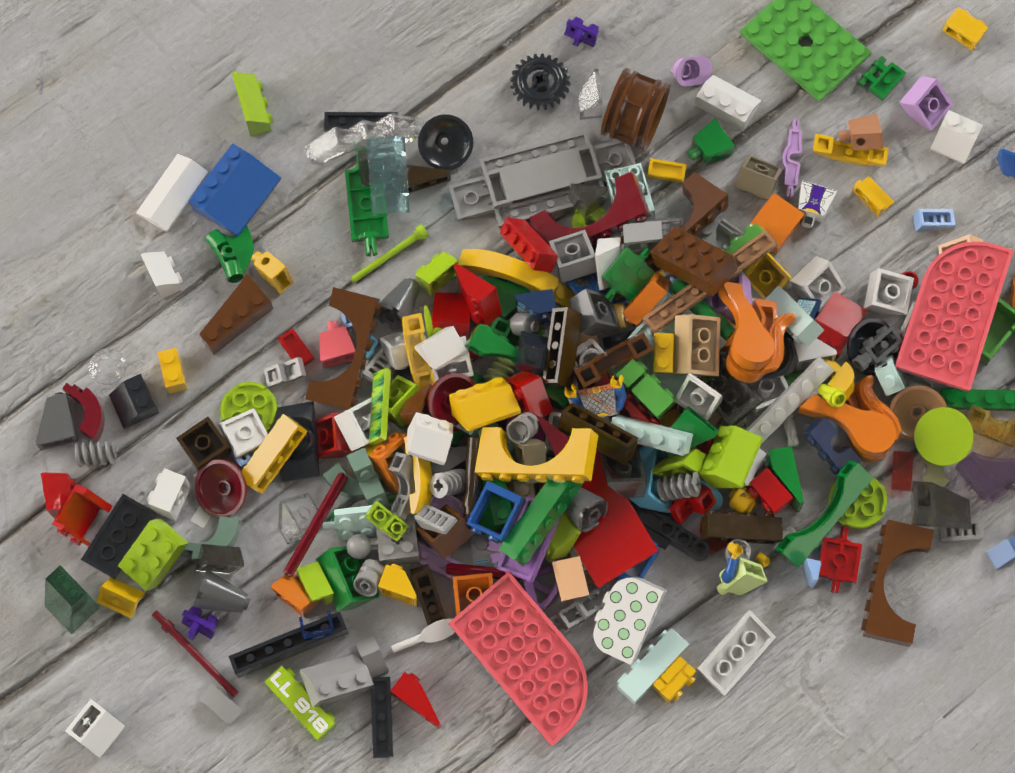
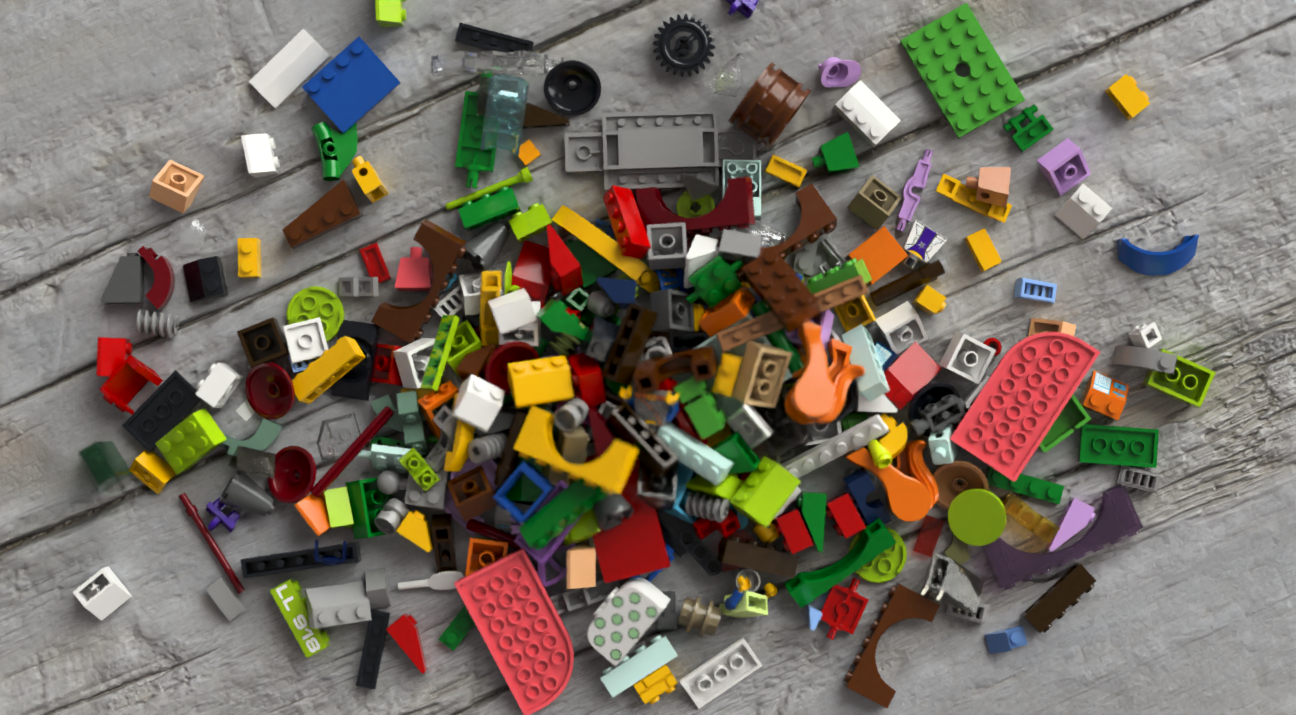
camera: 10 degrees right, 15 degrees up
(86, 323) = (176, 186): none -> light nougat slope
(257, 555) = (289, 465): none -> dark red dish
(394, 270) = (489, 209): none -> green slope
(417, 213) = (528, 152): none -> light orange tile
(432, 519) = (460, 474): light grey slope -> none
(462, 675) = (457, 629): none -> green plate
(668, 610) = (668, 617): none -> dark grey piece
(700, 600) = (699, 616): none -> dark tan piece
(791, 432) = (833, 472): white axle -> none
(815, 467) = (844, 515): none -> red brick
(824, 230) = (925, 274): none -> dark brown piece
(838, 249) = (930, 300): none -> yellow brick

